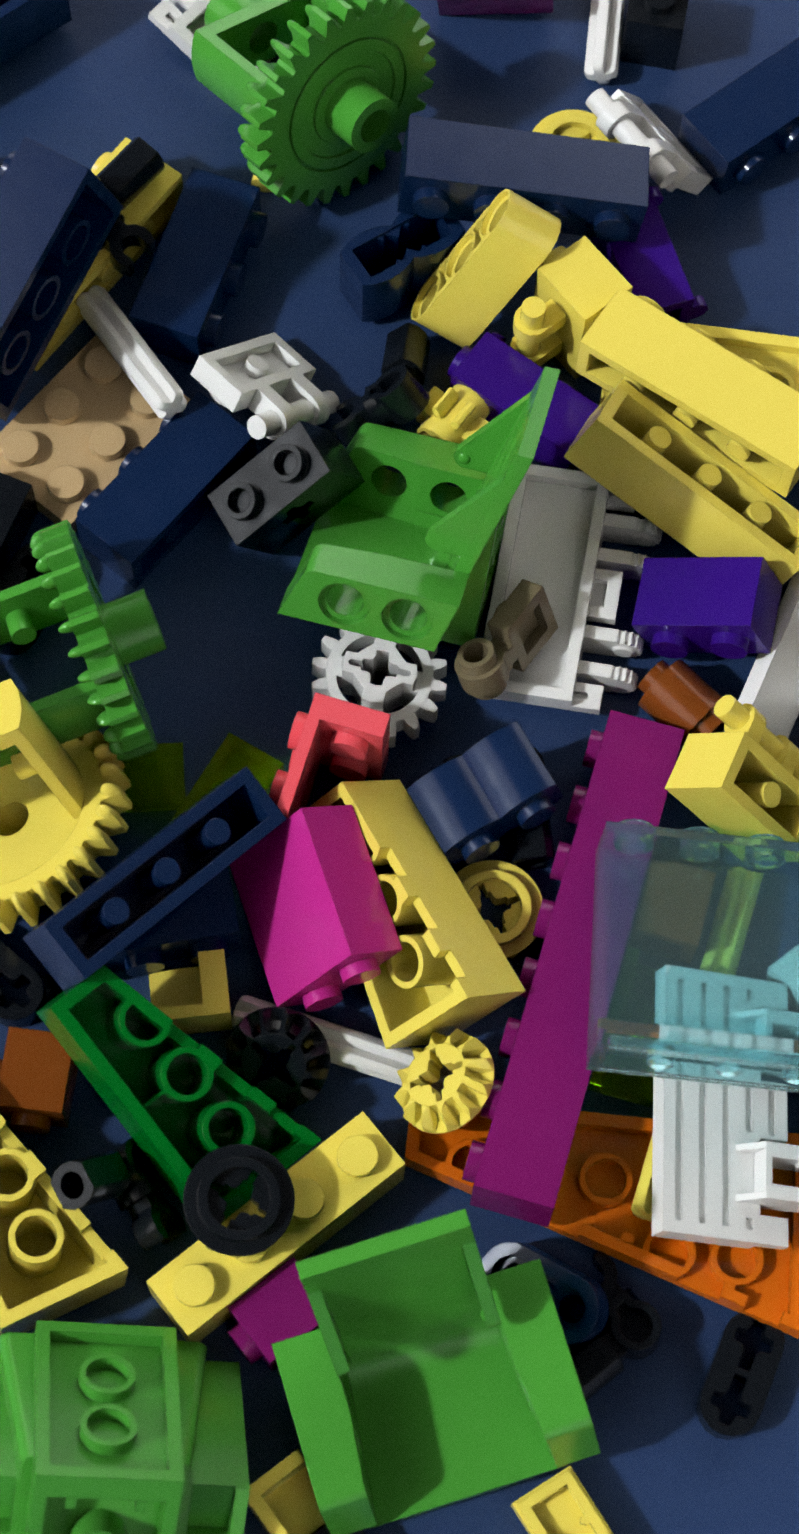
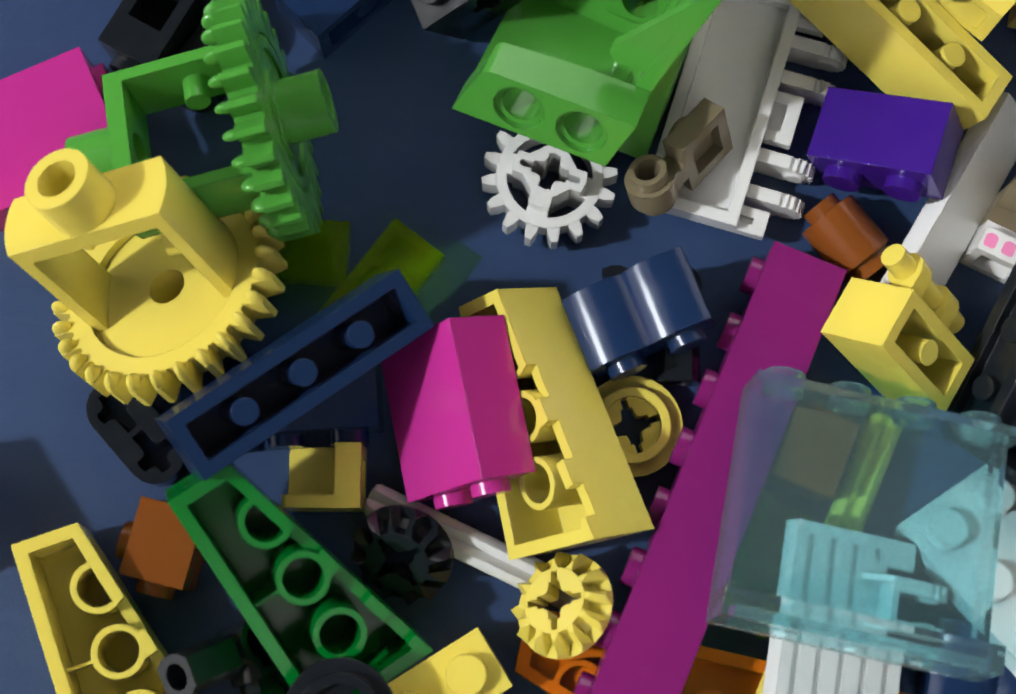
camera: 10 degrees right, 10 degrees up
(333, 734) = (507, 238): coral bracket -> none

